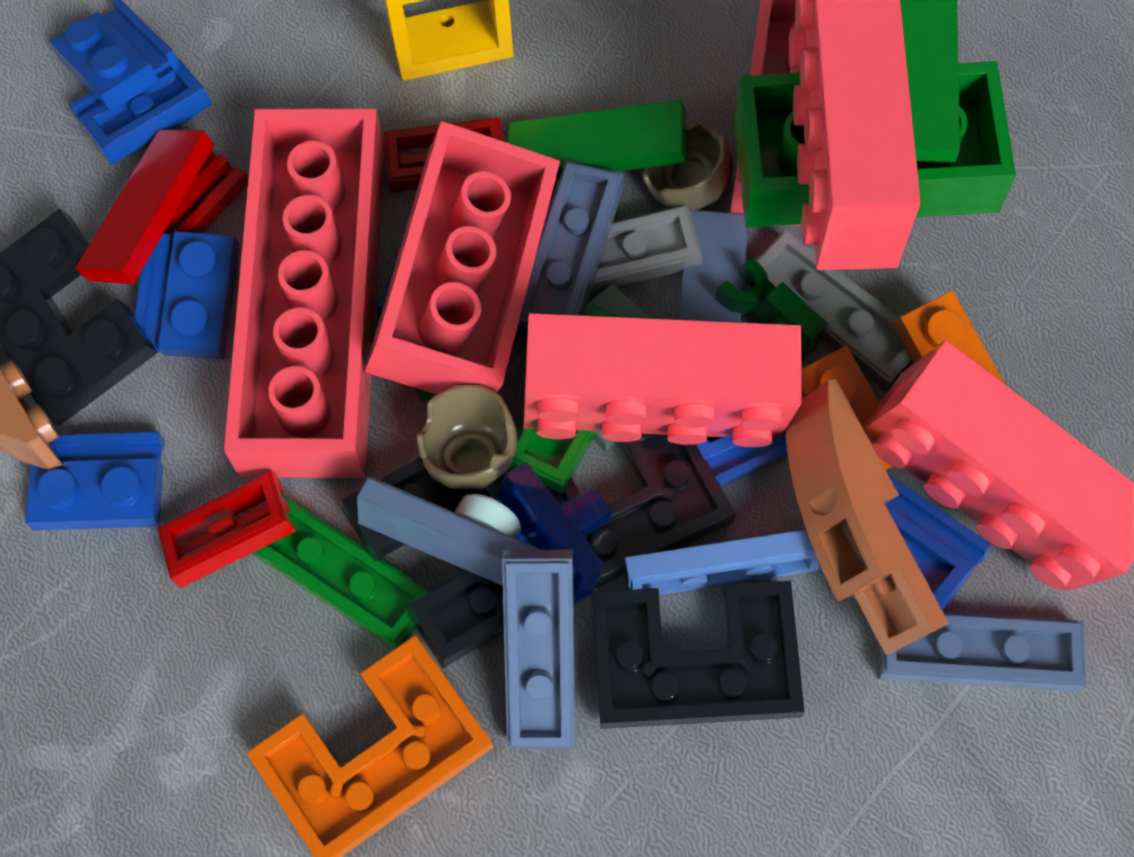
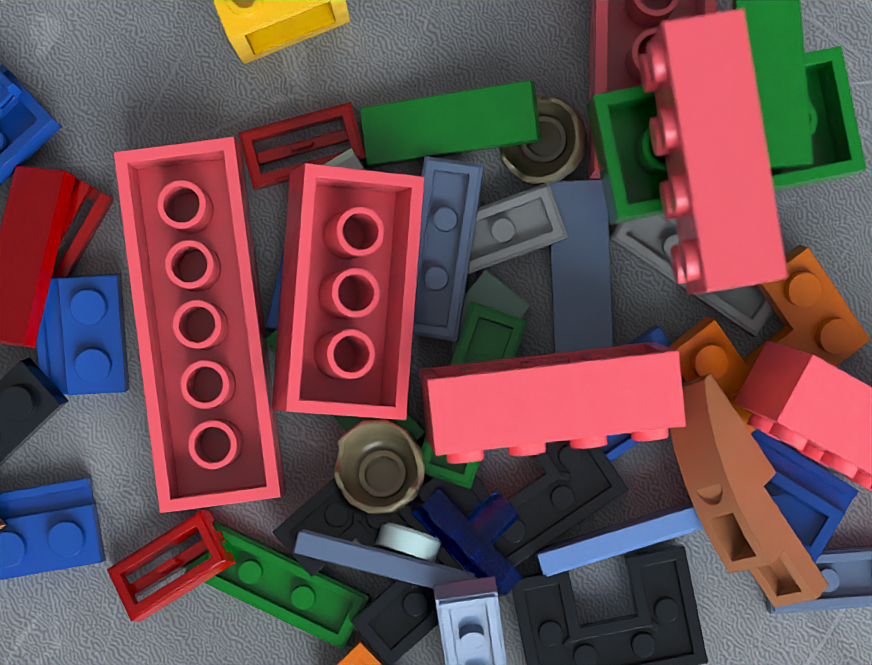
camera: 15 degrees left, 20 degrees up
(773, 305) = (654, 292): dark green plate -> none

